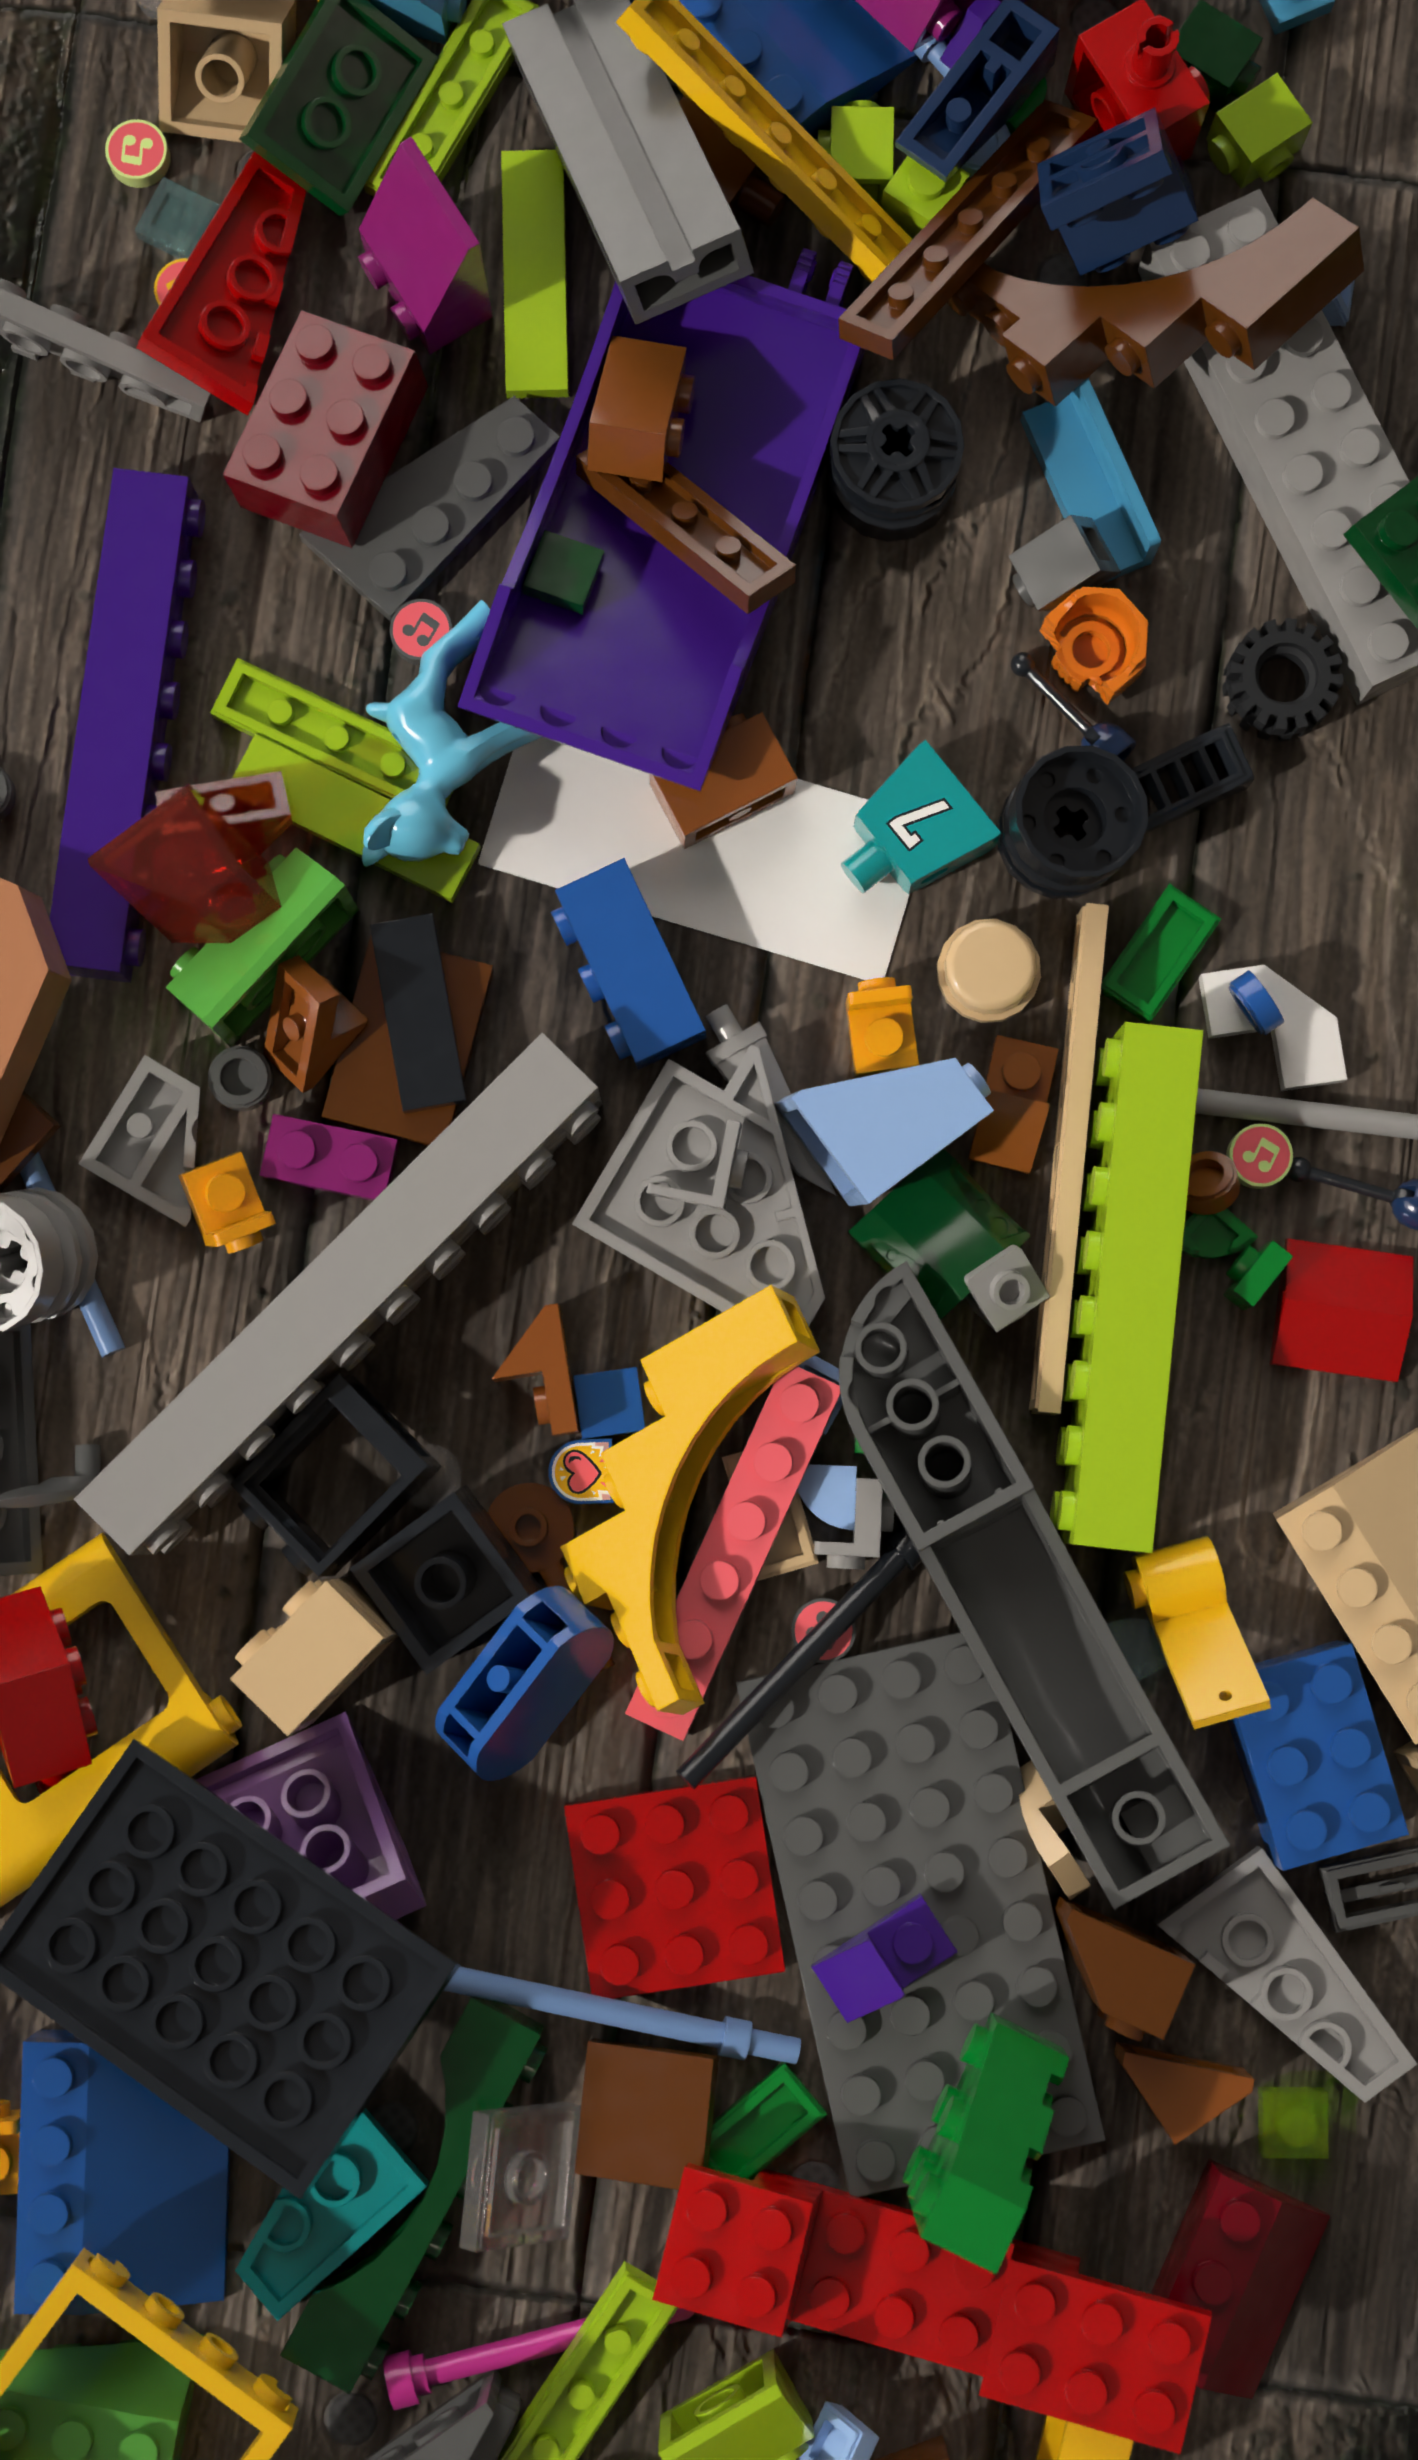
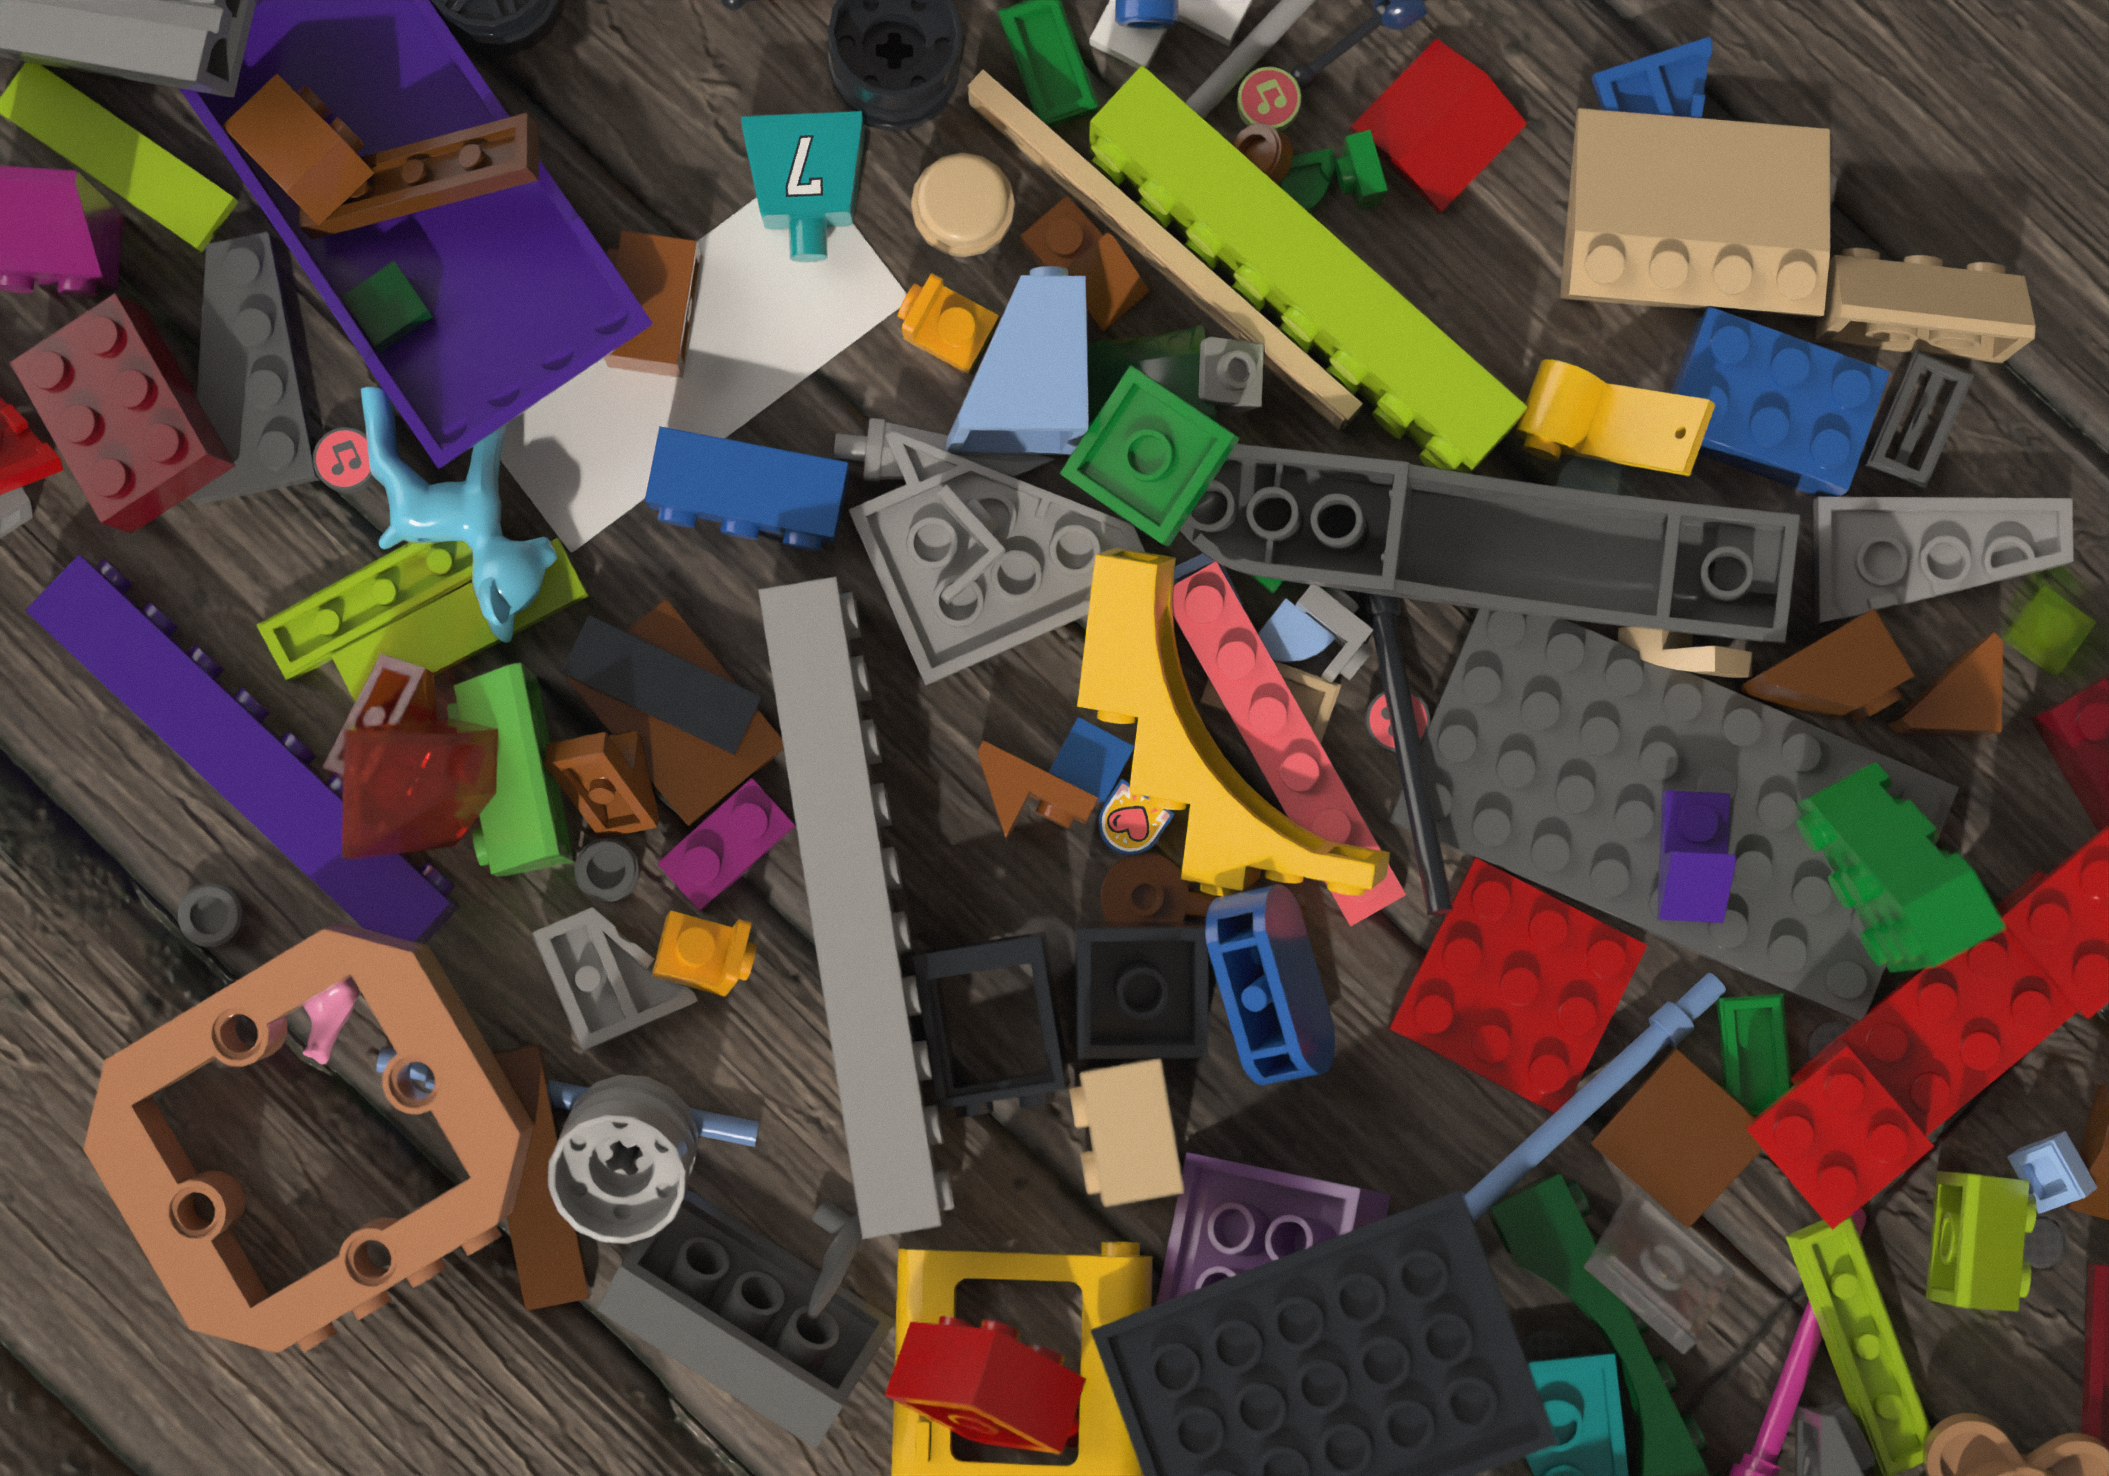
camera: 55 degrees left, 0 degrees up
(885, 1270) = (1149, 455): none -> green plate

